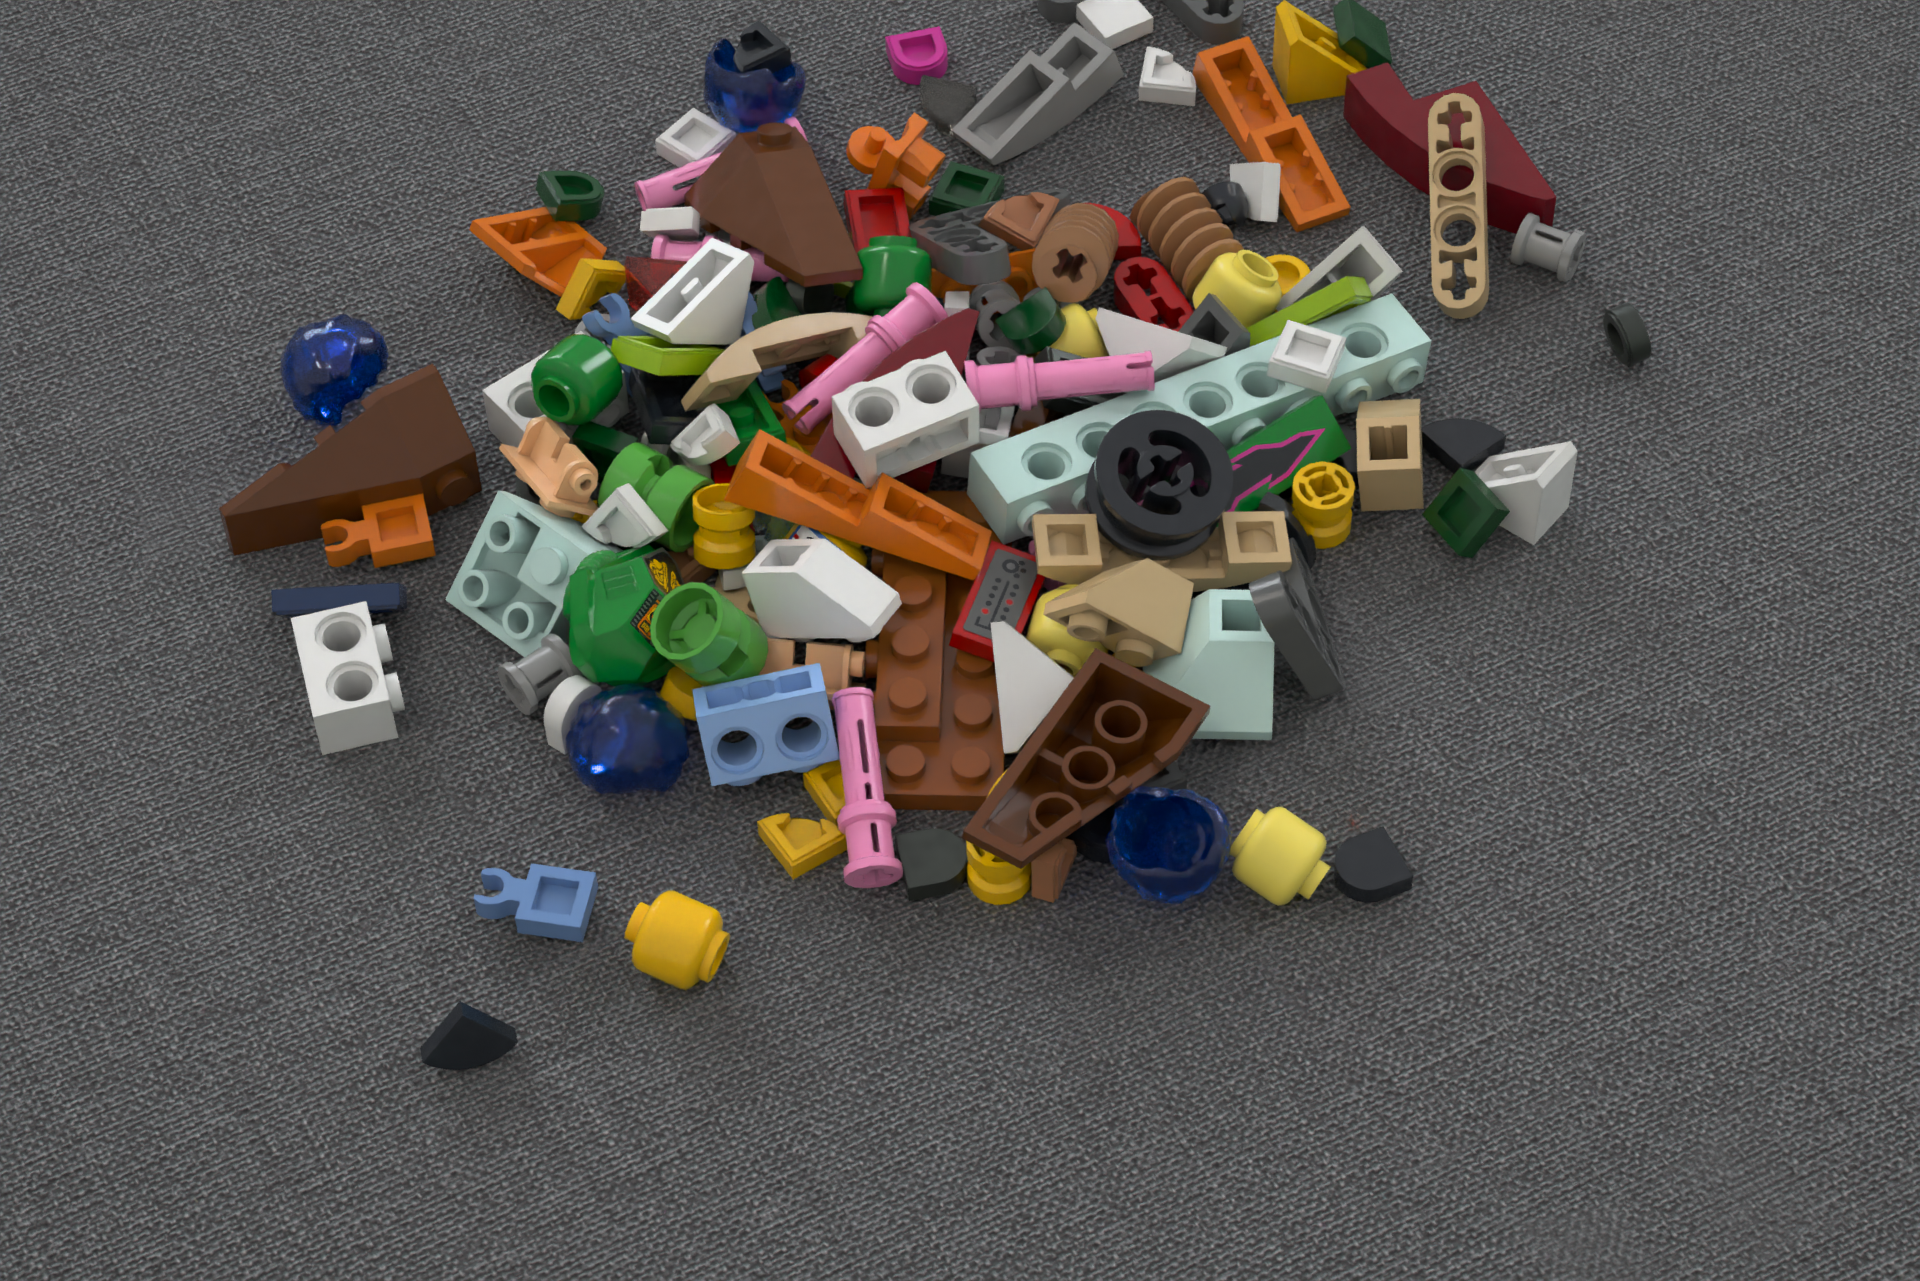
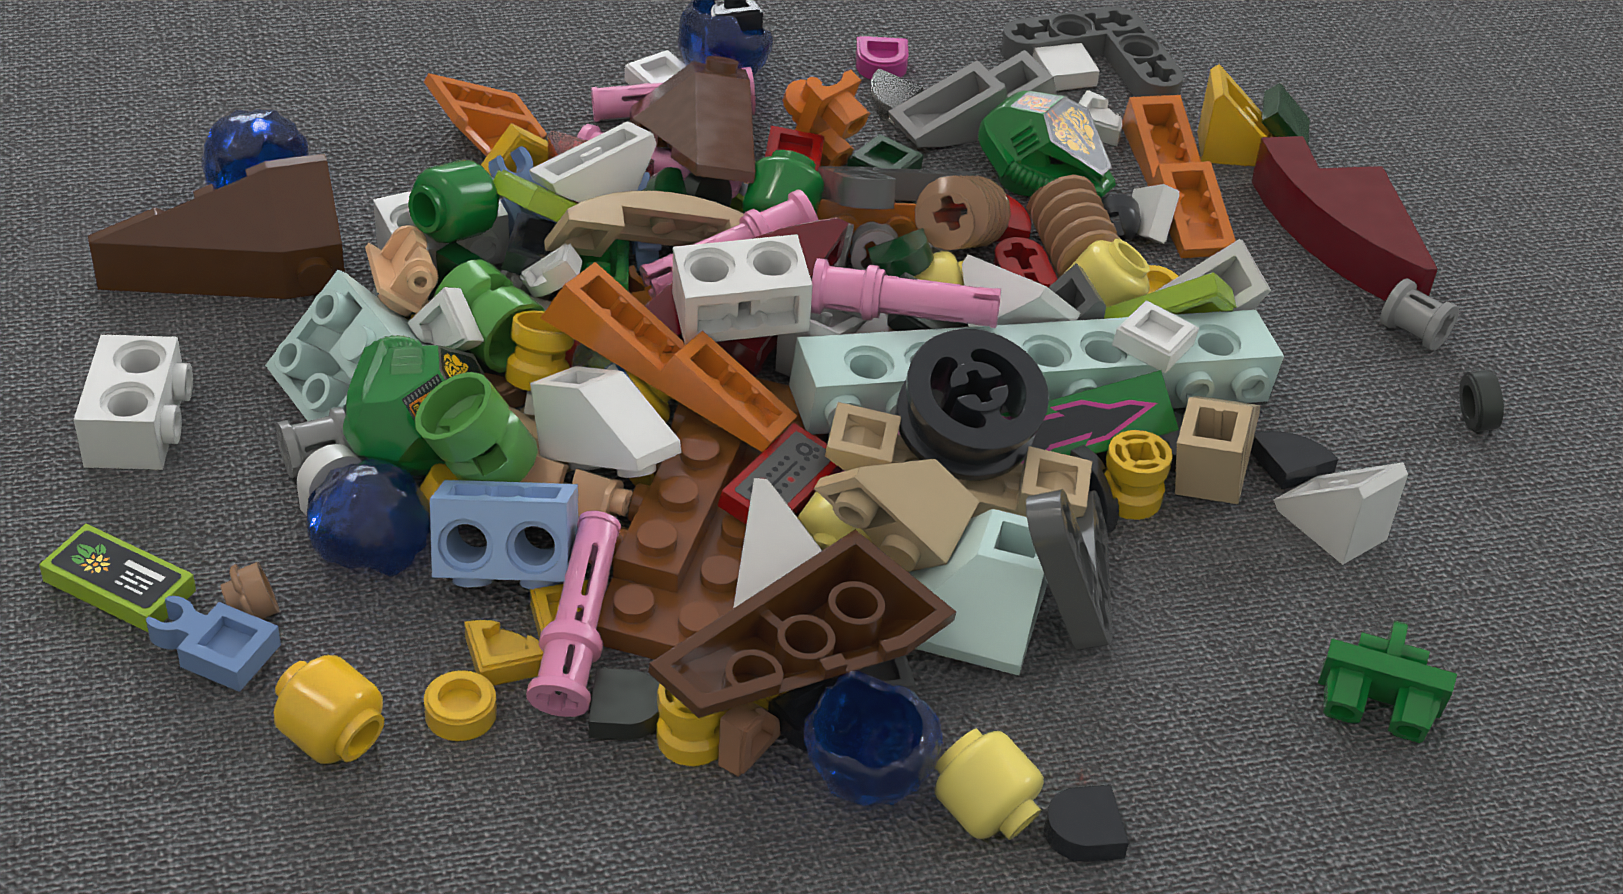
camera: 10 degrees right, 10 degrees down
(308, 600) = (196, 343): dark blue tile -> none
(390, 531) = (236, 299): orange plate -> none
(417, 861) = (115, 576): none -> tile
(467, 1040) = (73, 753): black tile -> none
(550, 844) = (250, 591): none -> medium nougat plate
(570, 195) = (532, 87): dark green tile -> none
(676, 222) = (604, 114): white tile -> none
(784, 902) = (460, 705): none -> yellow tile
(1020, 218) = (917, 172): nougat tile -> none
(1114, 123) = (1037, 125): none -> green helmet
(1464, 204) = (1334, 255): tan beam -> none
(1465, 512) = (1279, 514): dark green tile -> none
(1603, 652) = (1386, 673): none -> green hips

